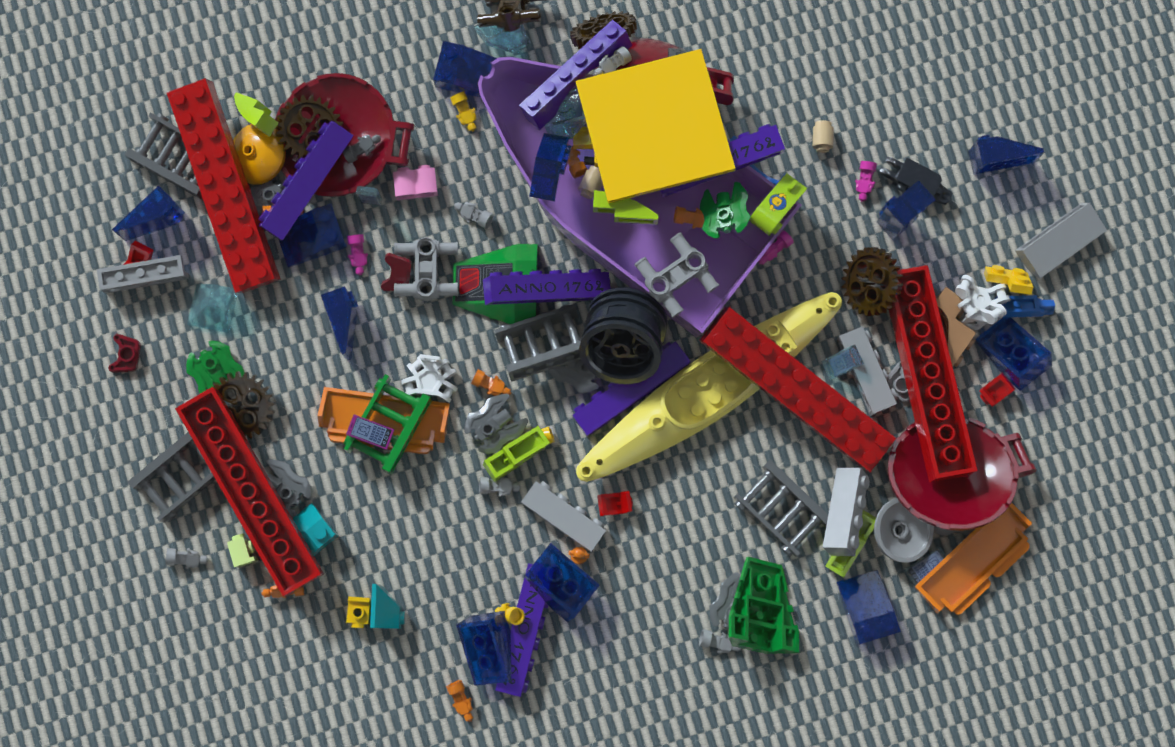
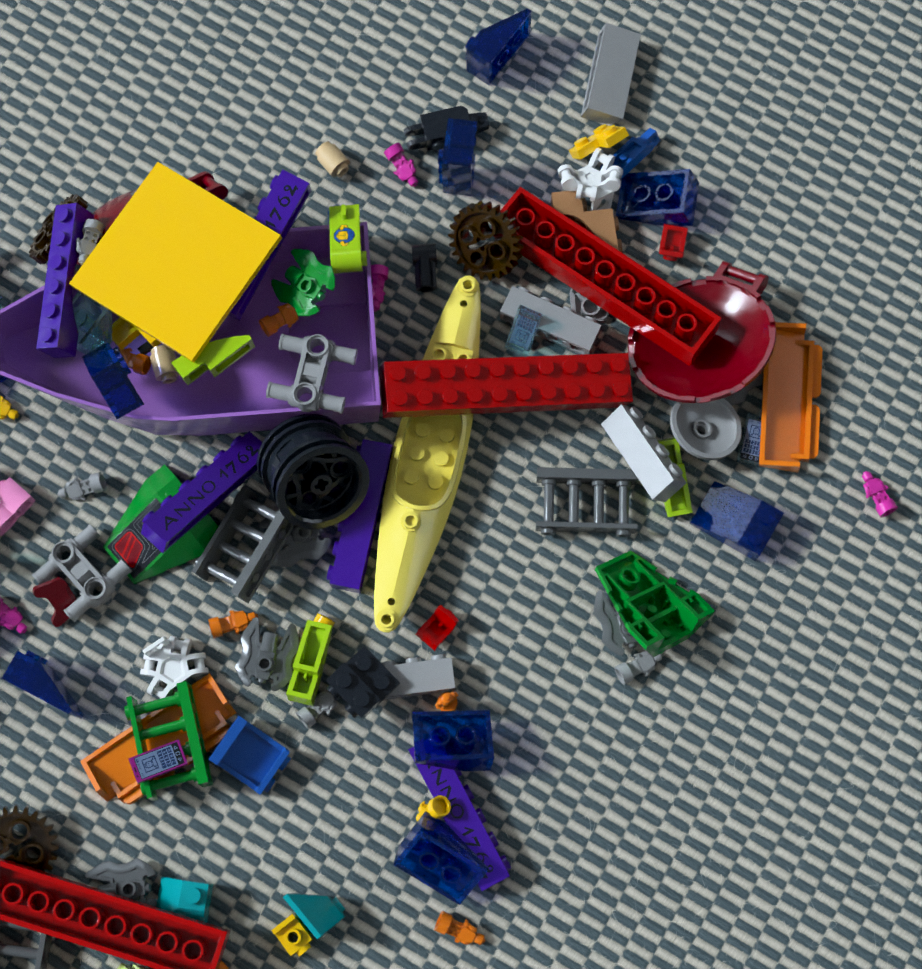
camera: 40 degrees left, 5 degrees down
(429, 478) = (250, 755): none -> blue panel
(536, 496) = (362, 683): none -> black plate
(820, 259) = (424, 260): none -> black piece
(977, 670) = (877, 490): none -> dark pink piece

